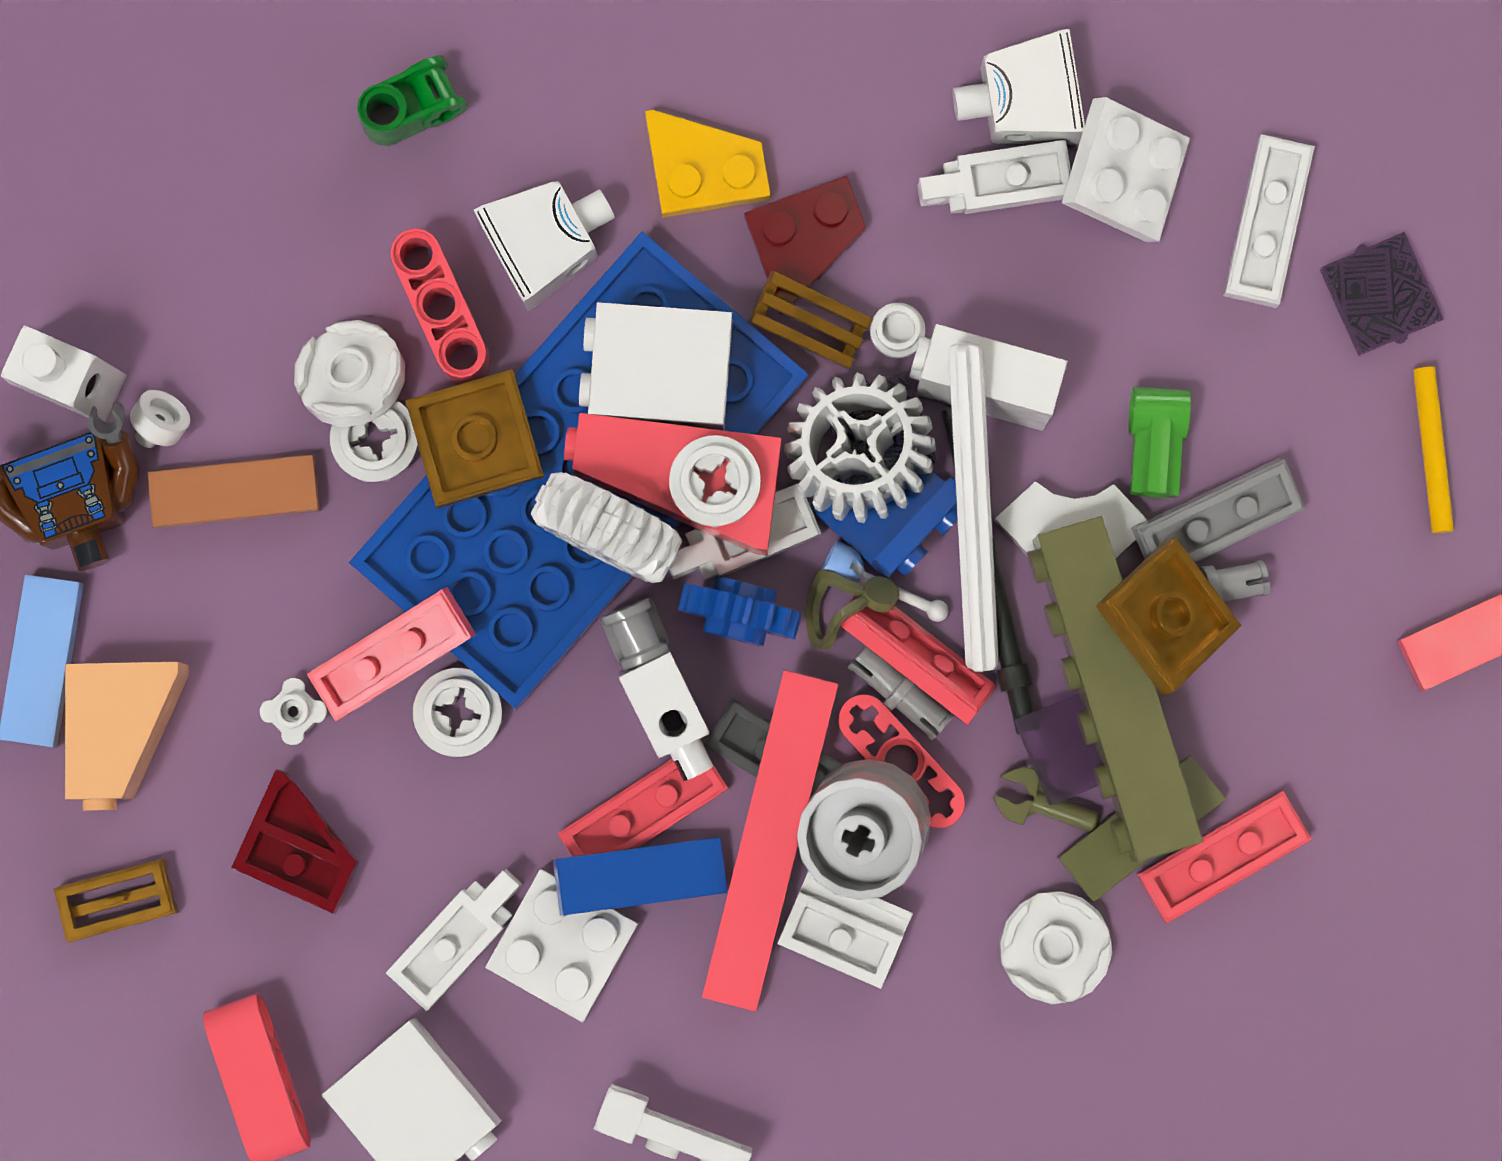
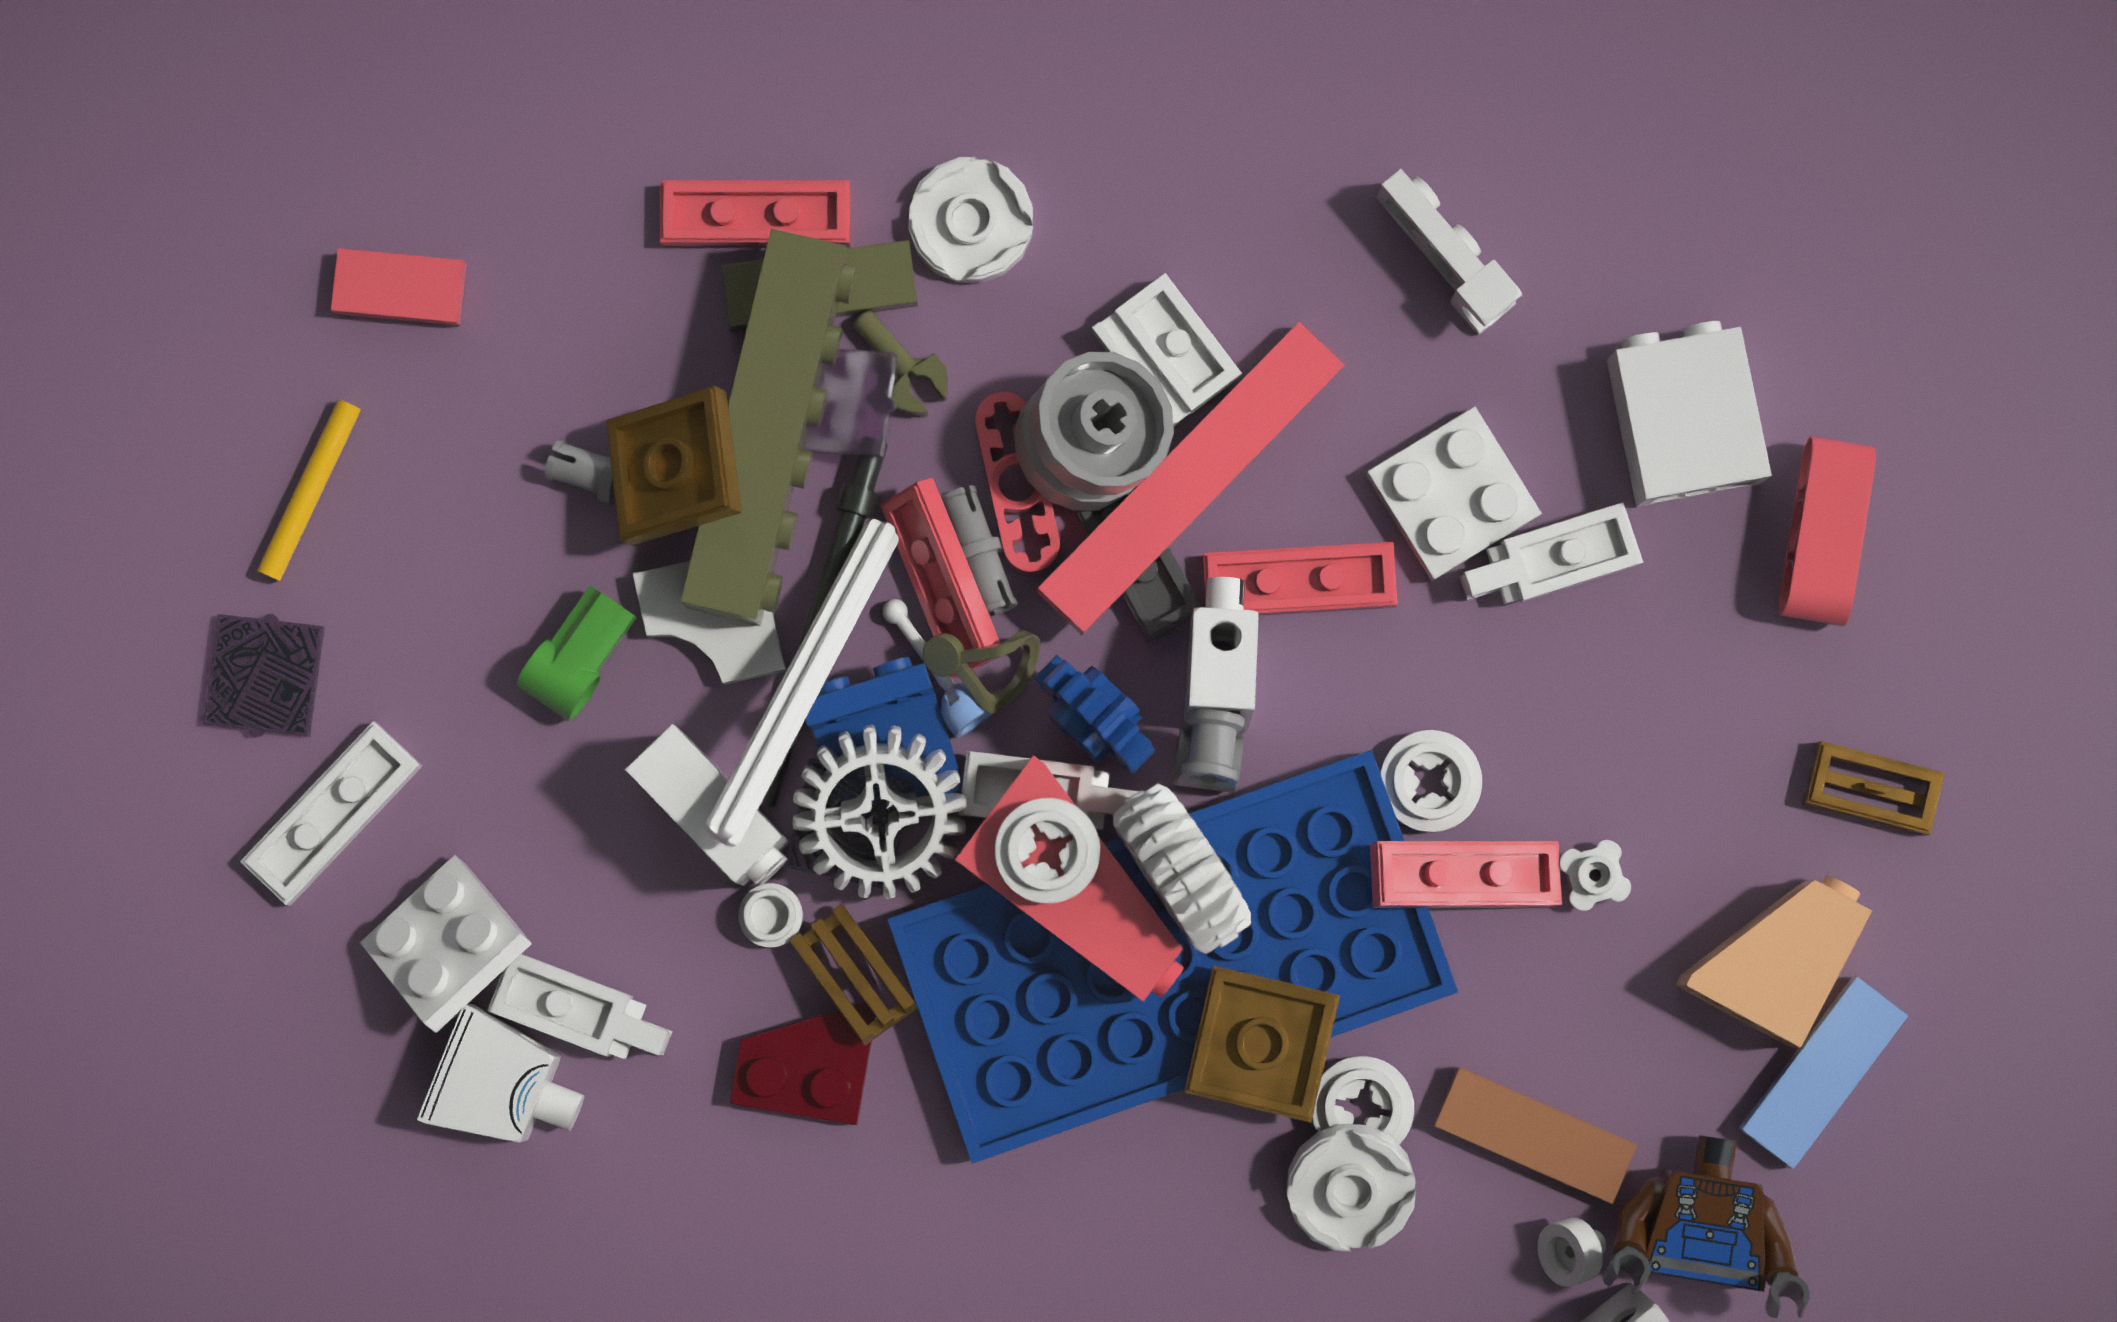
camera: 160 degrees left, 0 degrees up
(296, 848) = (1666, 736): dark red wing -> none
(426, 285) = (1223, 1235): coral beam -> none
(543, 237) = (1075, 1216): white torso -> none
(639, 876) = (1340, 514): blue tile -> none
(658, 364) = (1037, 1008): white brick -> none
(704, 166) = (869, 1199): yellow wing -> none
(1225, 513) = (555, 543): light grey tile -> none

